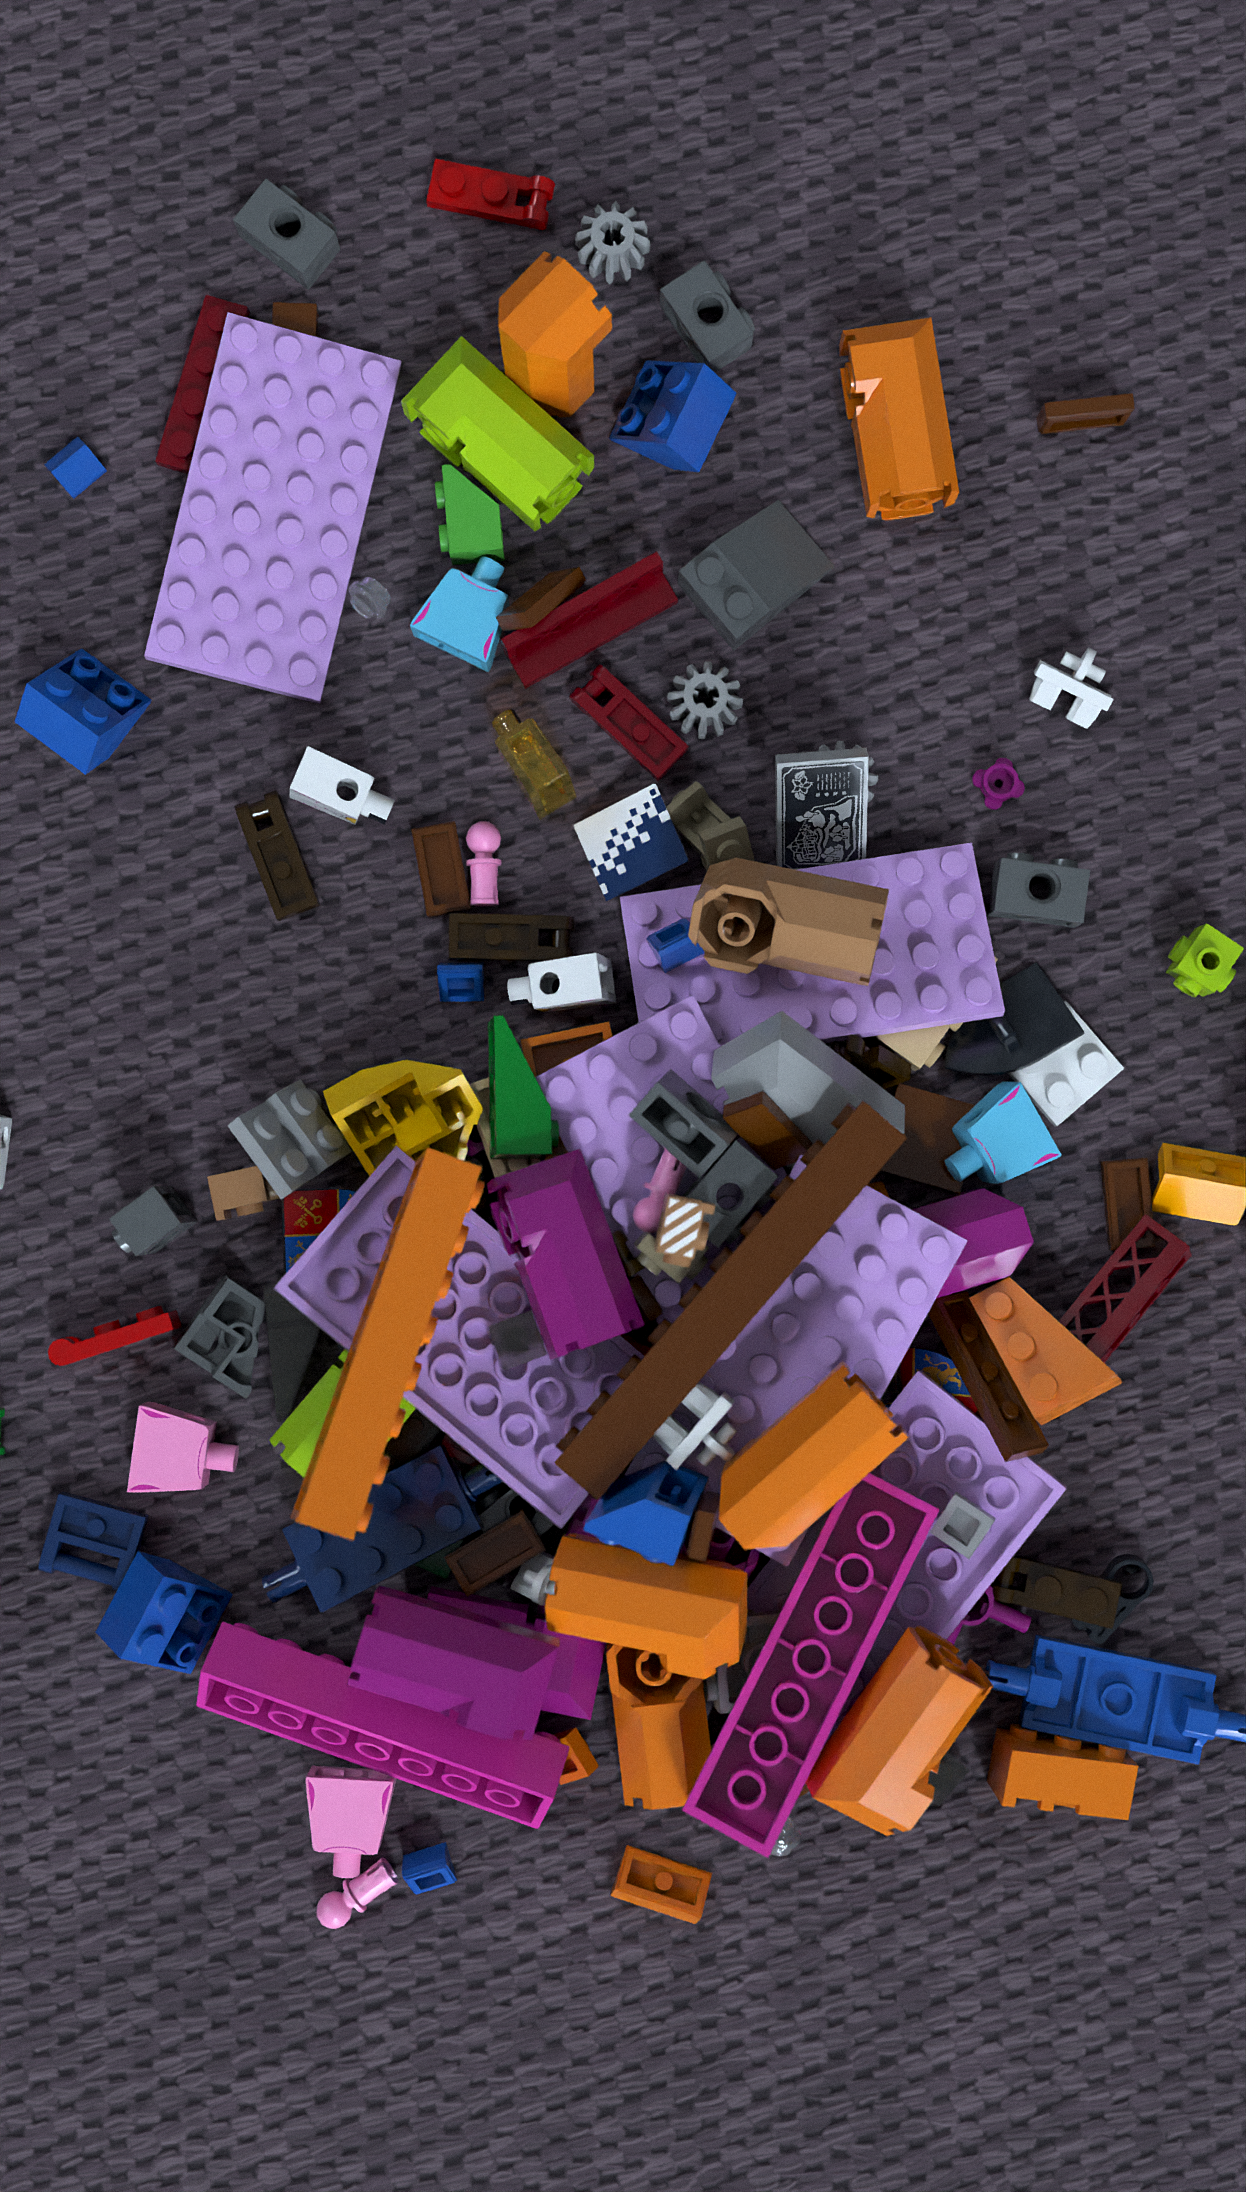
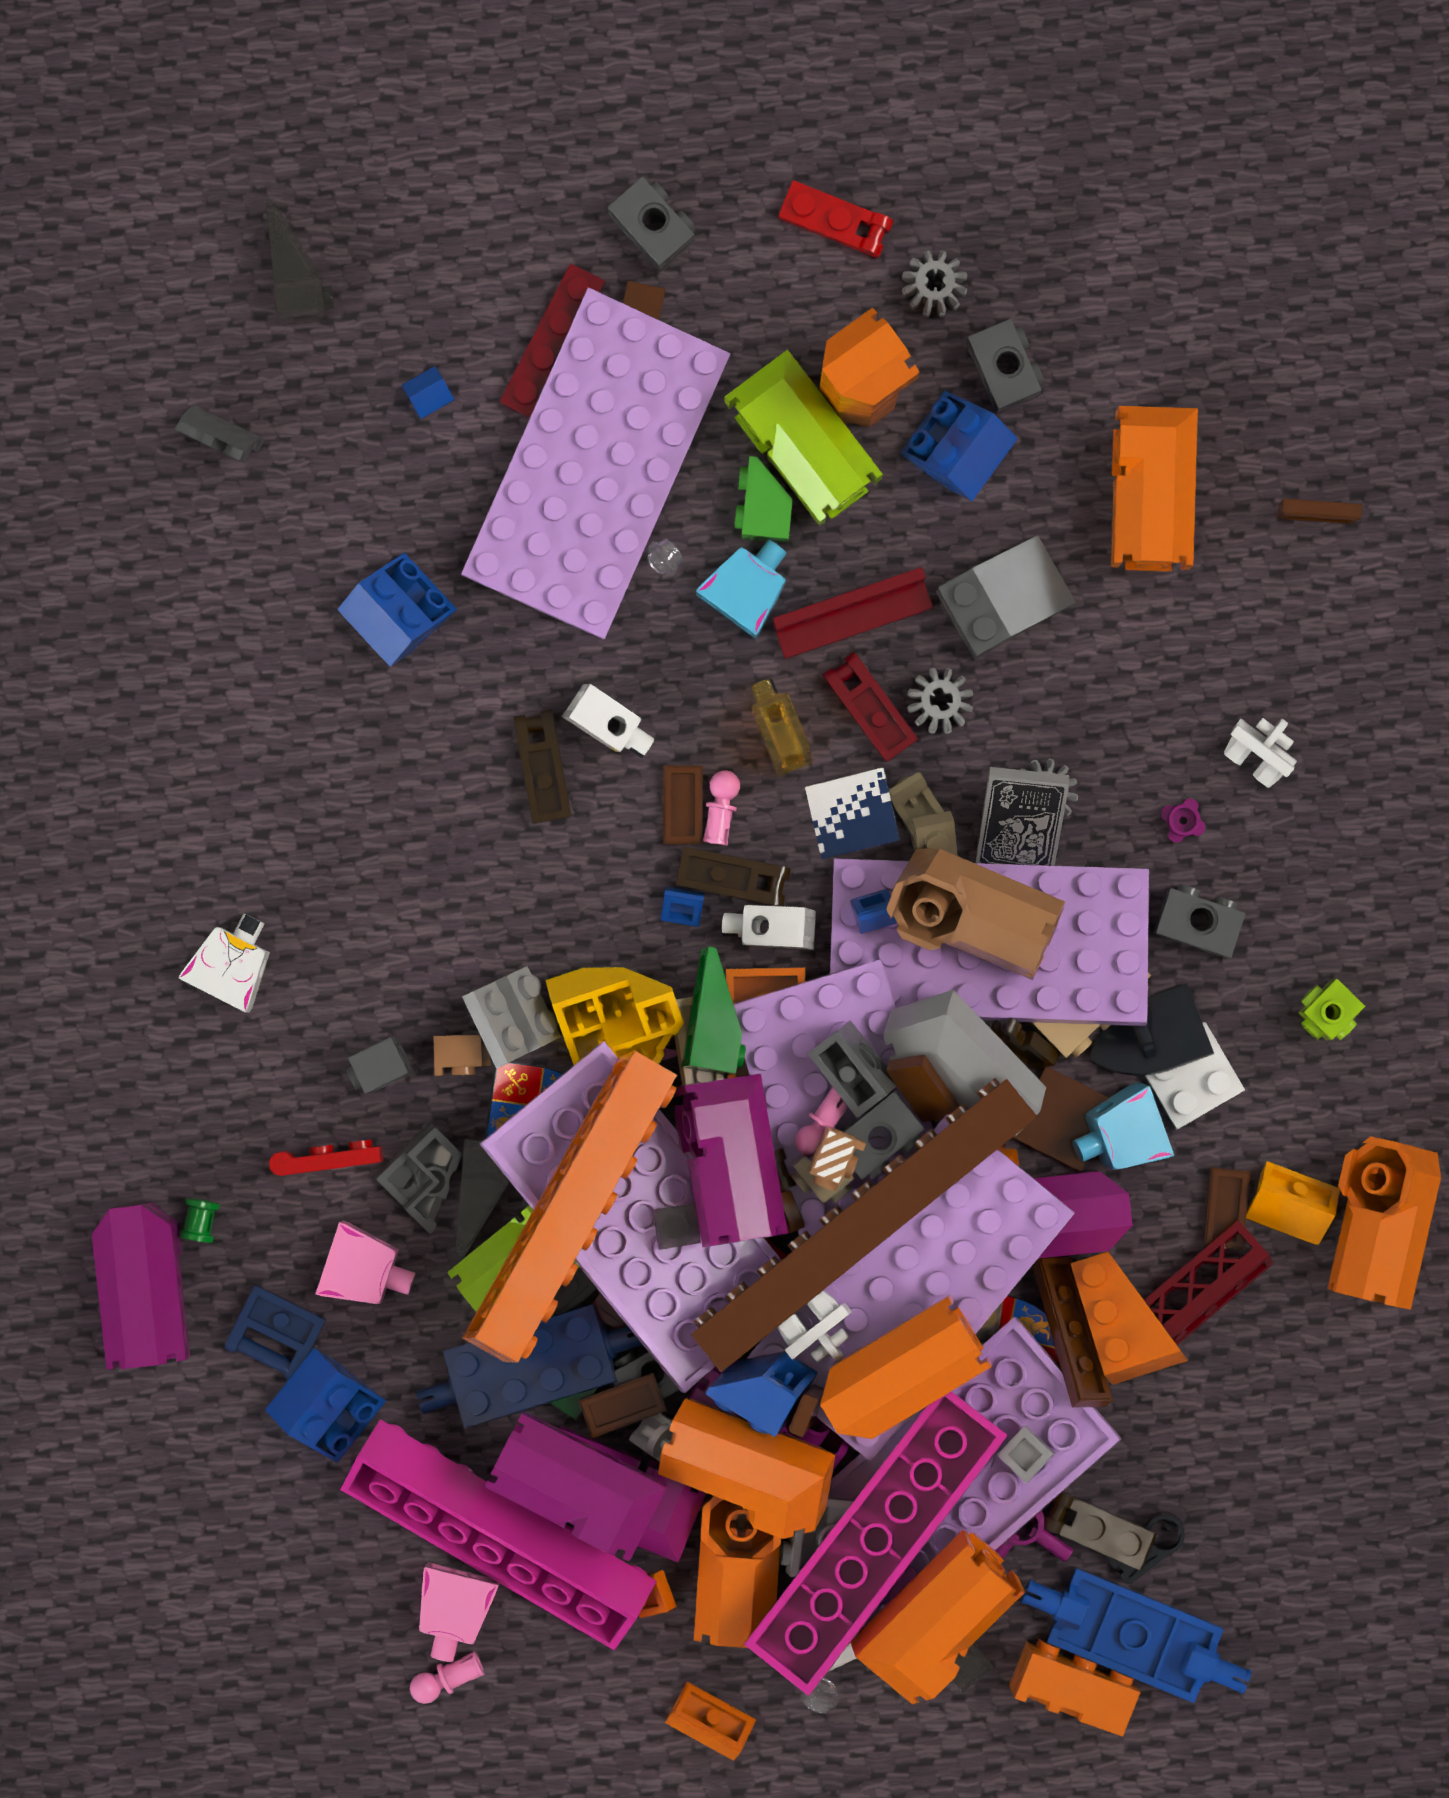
camera: 15 degrees right, 0 degrees up
(428, 1869) = (512, 1669): blue slope -> none
(541, 599) = (814, 588): reddish brown tile -> none

